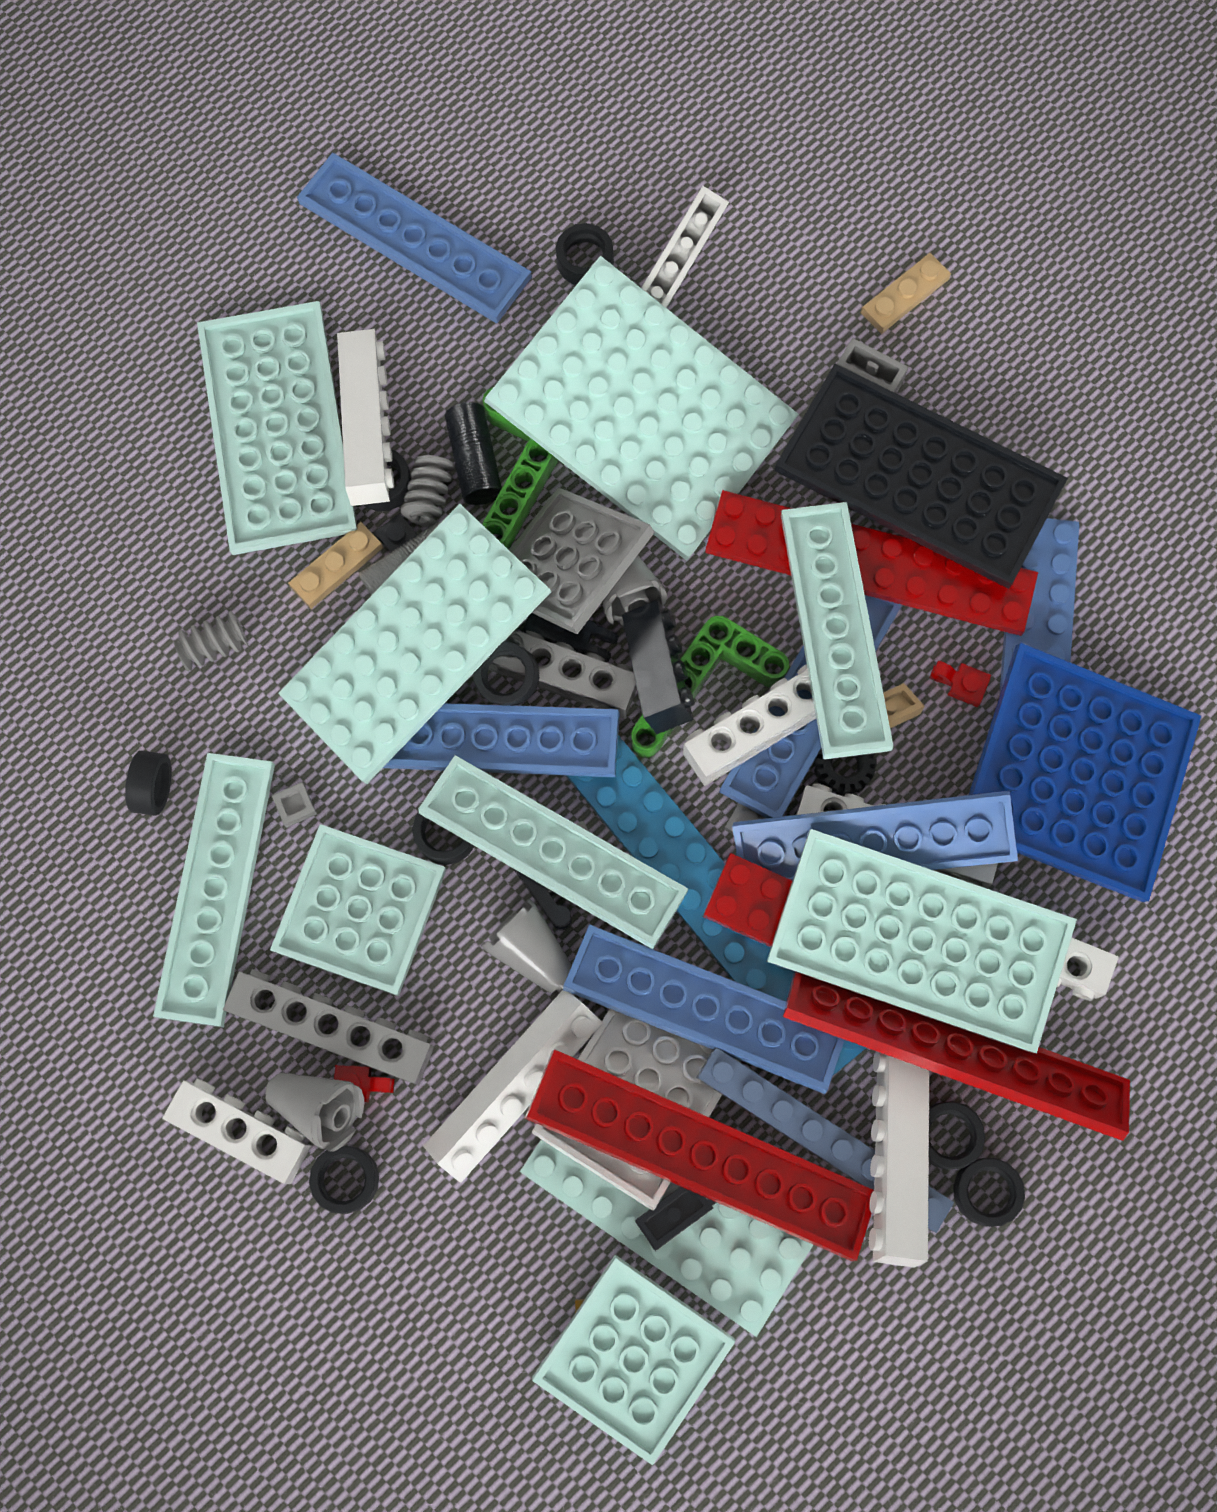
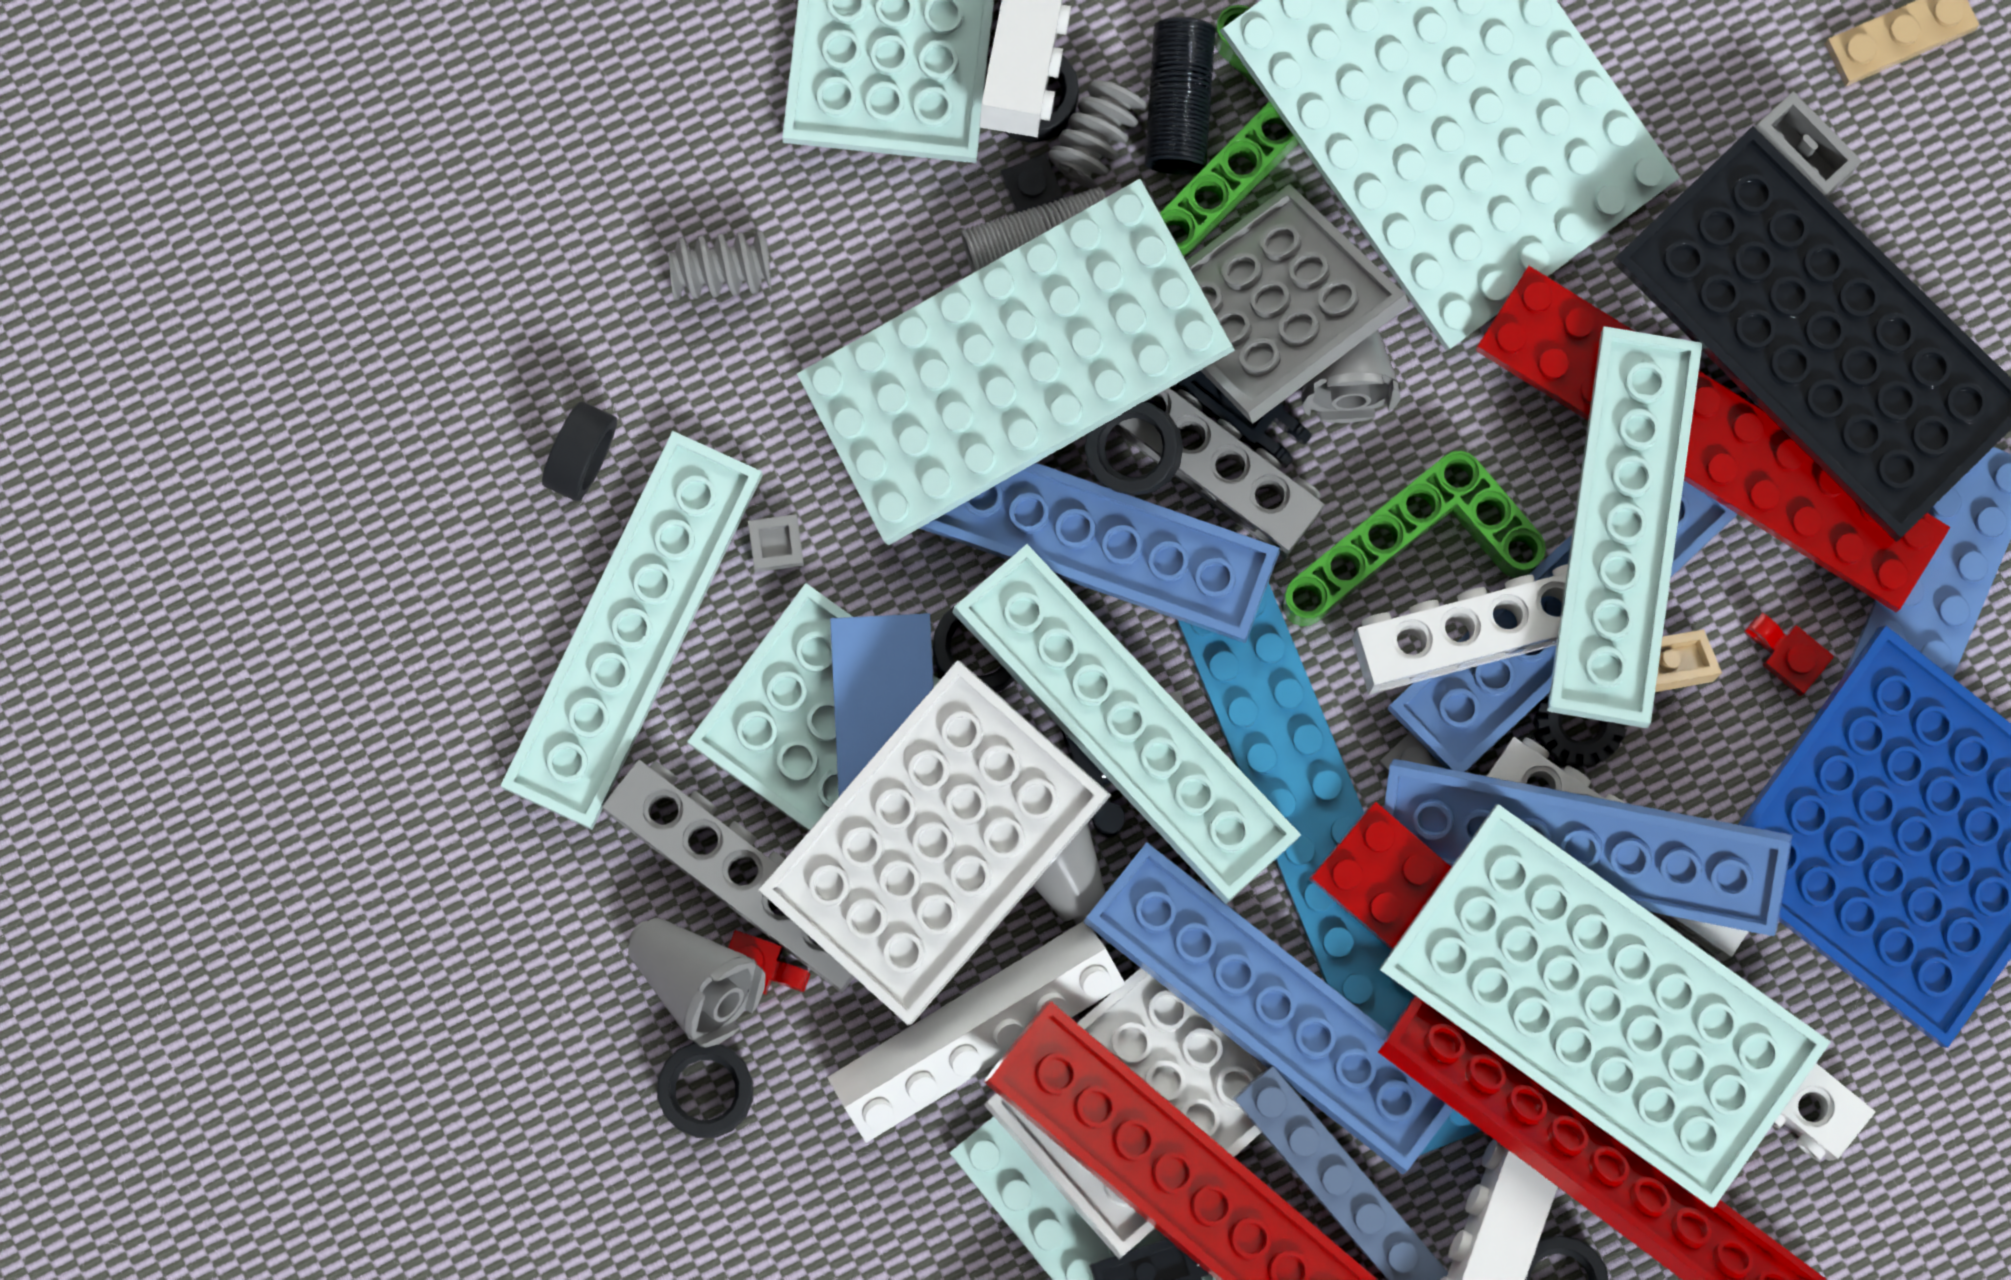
camera: 10 degrees right, 5 degrees up
(186, 1113) = (512, 932): white brick -> none
(335, 565) = (929, 203): tan plate -> none
(394, 894) = (877, 682): none -> medium blue tile
(447, 967) = (934, 842): none -> white plate
(657, 667) = (1354, 502): black brick -> none

